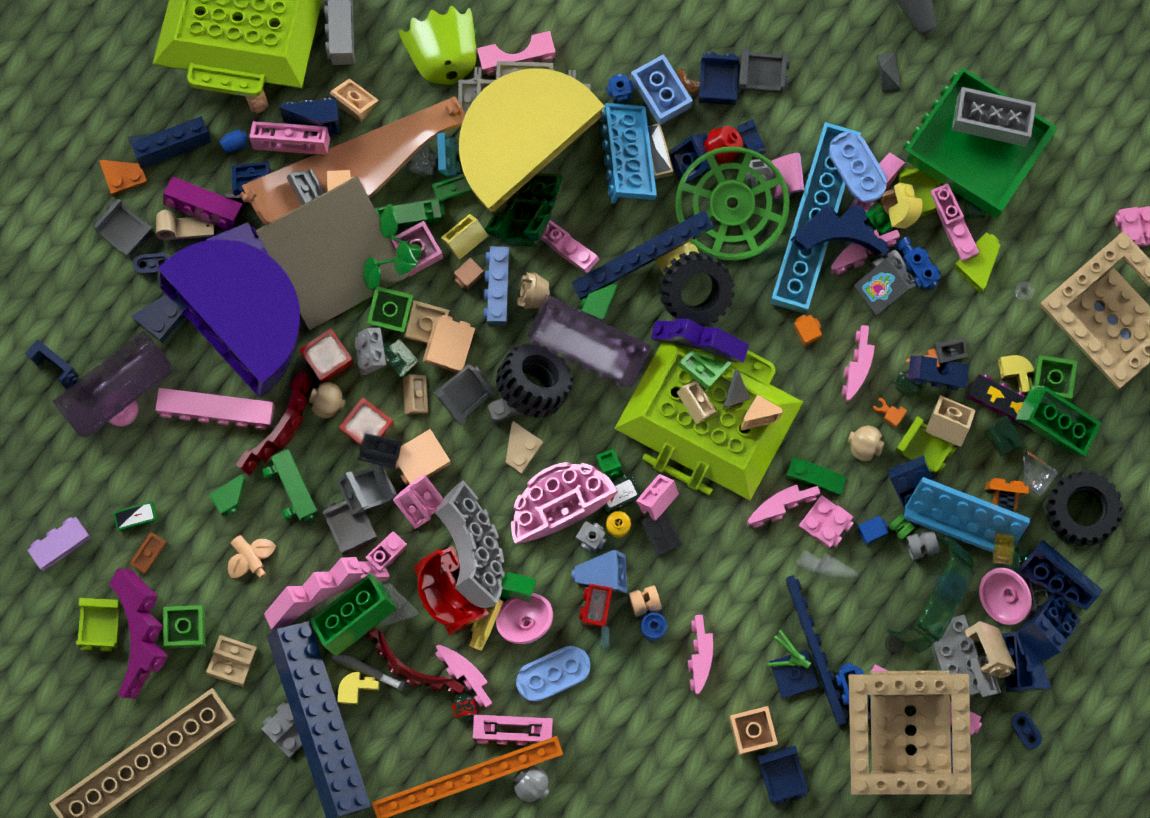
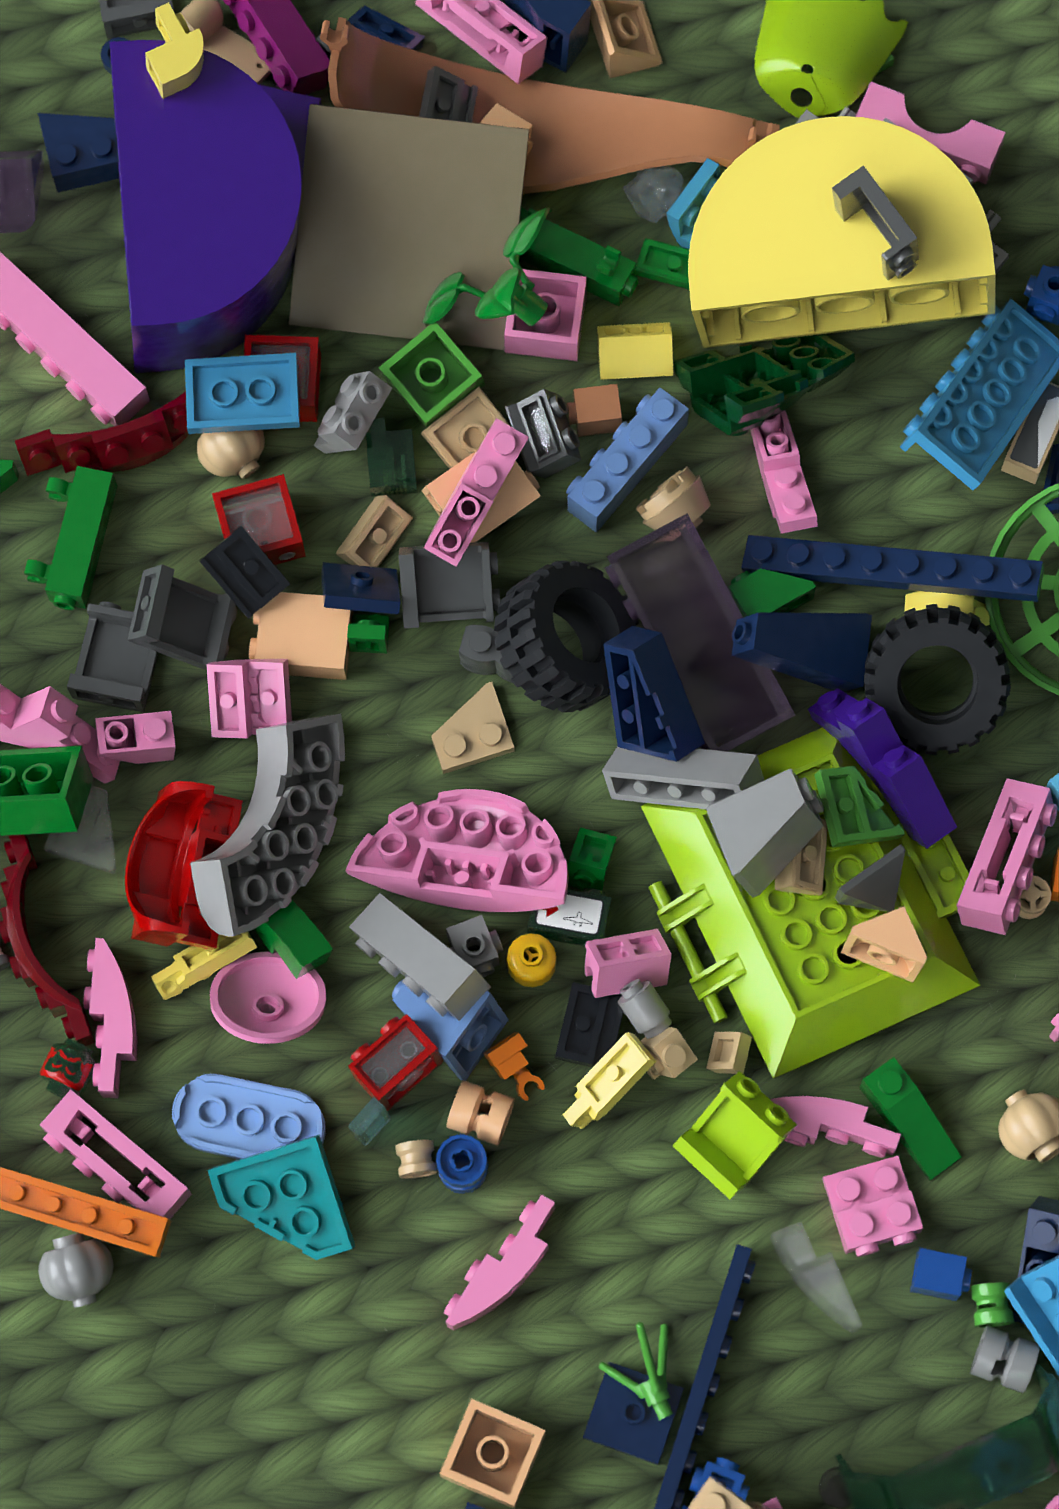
camera: 40 degrees right, 5 degrees down
(195, 253) = (180, 58): none -> light yellow brick
(319, 375) = (242, 393): none -> dark azure plate
(430, 421) = (360, 588): none -> dark blue plate
(447, 437) = (368, 633): none -> green bracket
(449, 348) = (475, 492): none -> bright pink slope
(455, 300) = (551, 440): none -> dark grey window
(544, 115) = (862, 192): none -> dark grey panel
(574, 556) = (419, 957): none -> light grey brick
(588, 382) = (649, 696): none -> dark blue wedge
(593, 692) = (287, 1196): none -> teal plate
(625, 404) = (691, 782): none -> light grey brick
(633, 638) = (416, 1159): none -> tan wheel
(637, 311) = (808, 646): none -> dark blue slope
(640, 572) = (508, 1060): none -> orange piece
(678, 402) = (766, 827): none -> light grey slope
(679, 510) = (644, 1008): none -> light grey brick
(687, 549) = (609, 1080): none -> light yellow hinge
(700, 522) = (670, 1053): none -> tan brick
(724, 503) = (729, 1052): none -> tan plate
(753, 534) = (735, 1135): none -> lime panel
(787, 367) = (981, 900): none -> bright pink brick
(799, 348) = (1039, 892): none -> tan wheel

